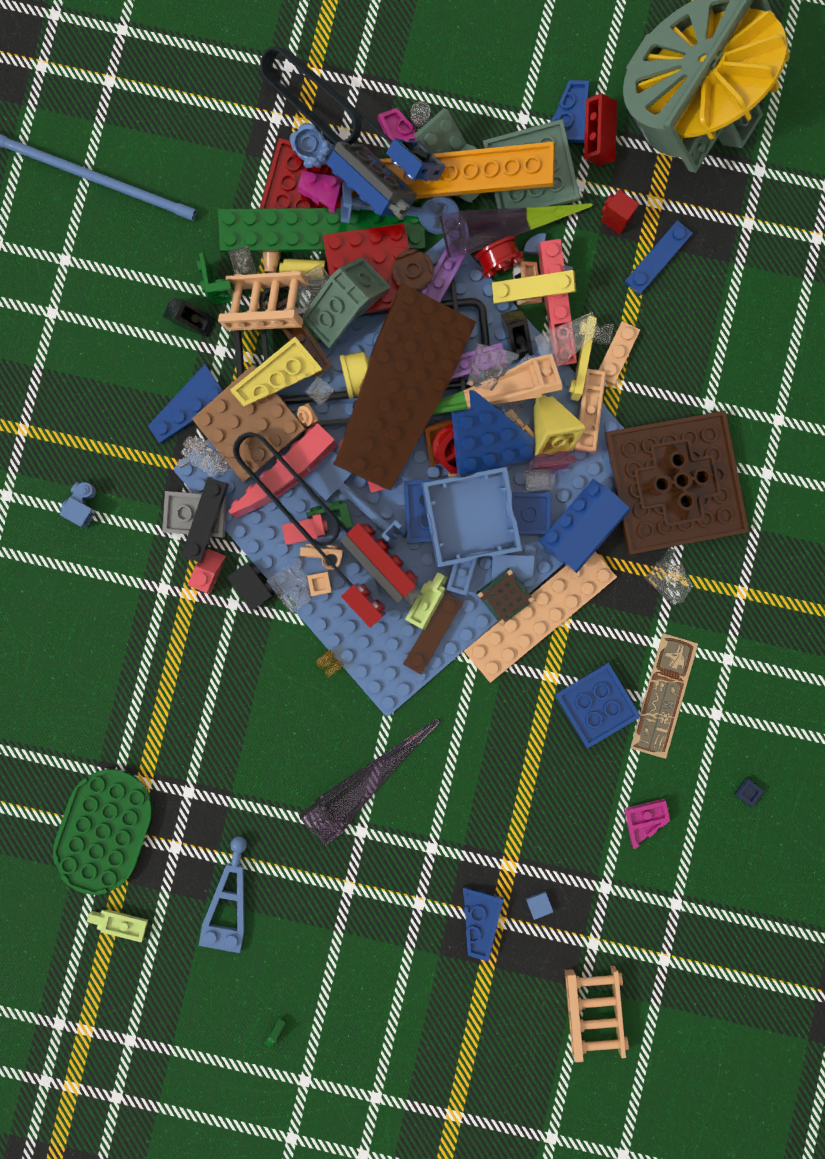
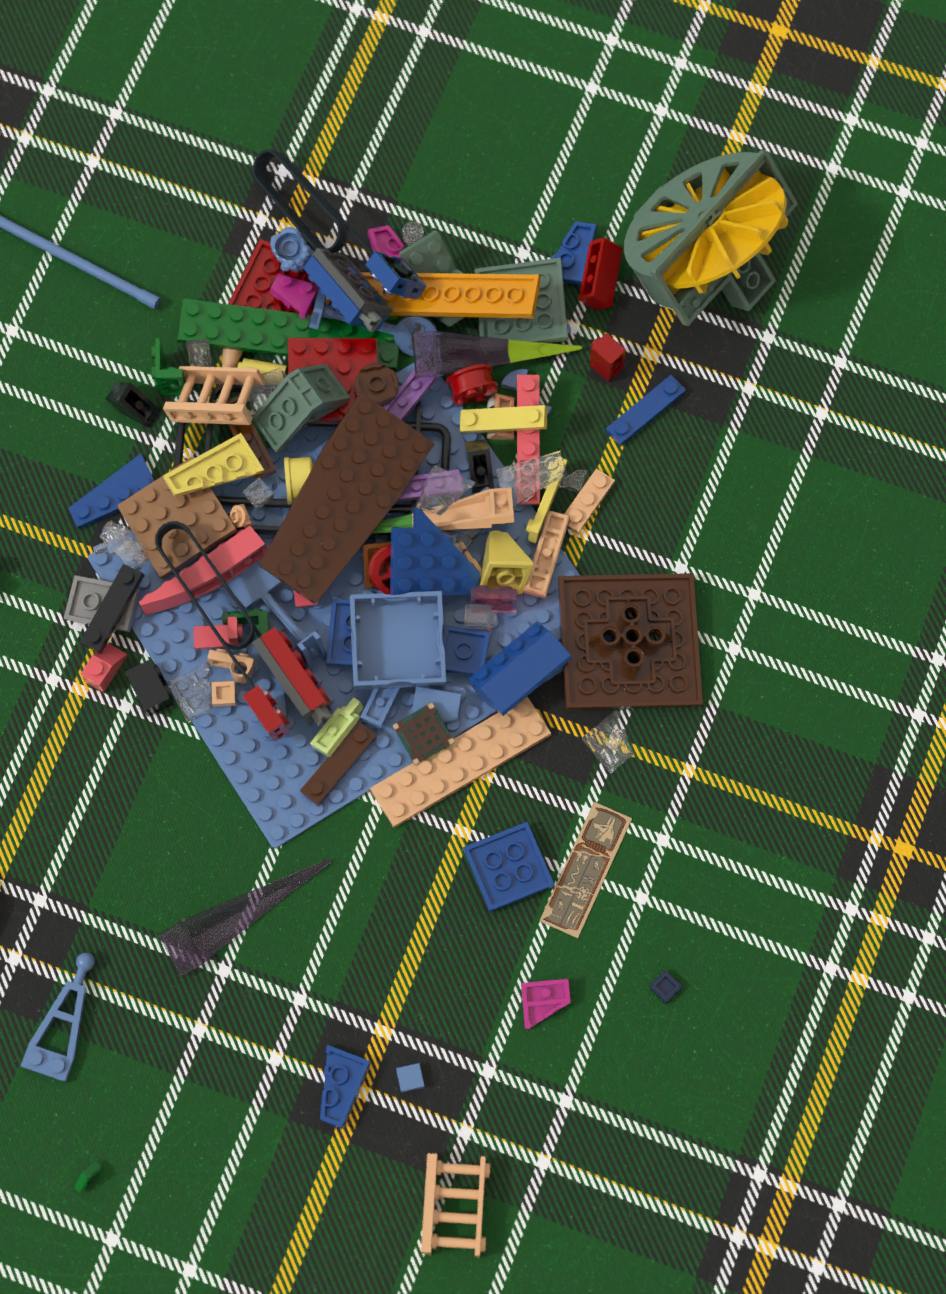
camera: 10 degrees right, 15 degrees down
(329, 663) = (219, 780): clear yellow wheel -> none

